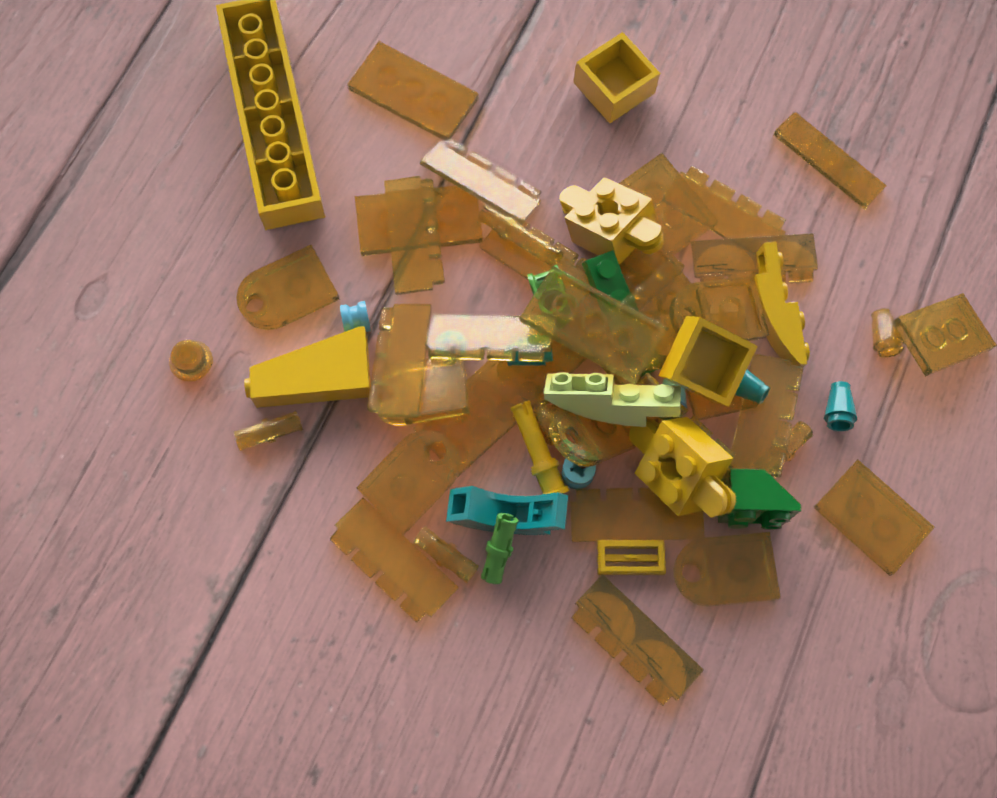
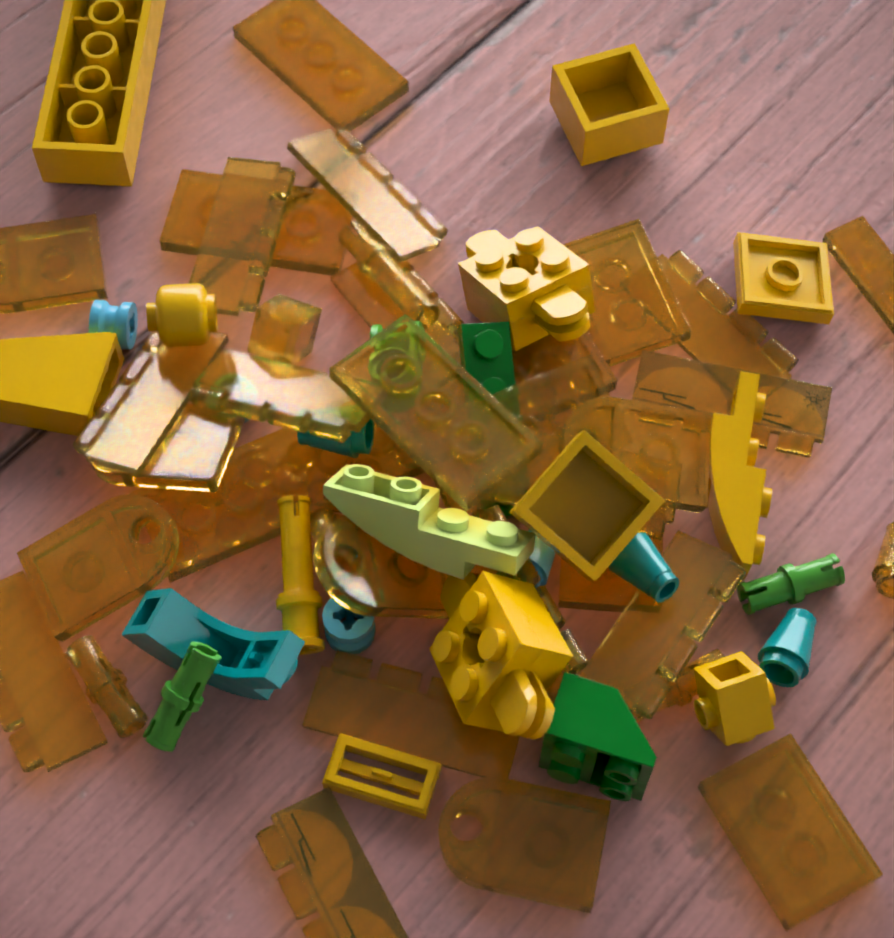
camera: 20 degrees right, 10 degrees down
(403, 301) = (183, 315): none -> yellow head
(468, 292) = (284, 329): none -> clear yellow brick
(760, 167) = (782, 278): none -> yellow tile
(822, 449) = (734, 699): none -> yellow brick
(828, 366) = (790, 583): none -> bright green pin

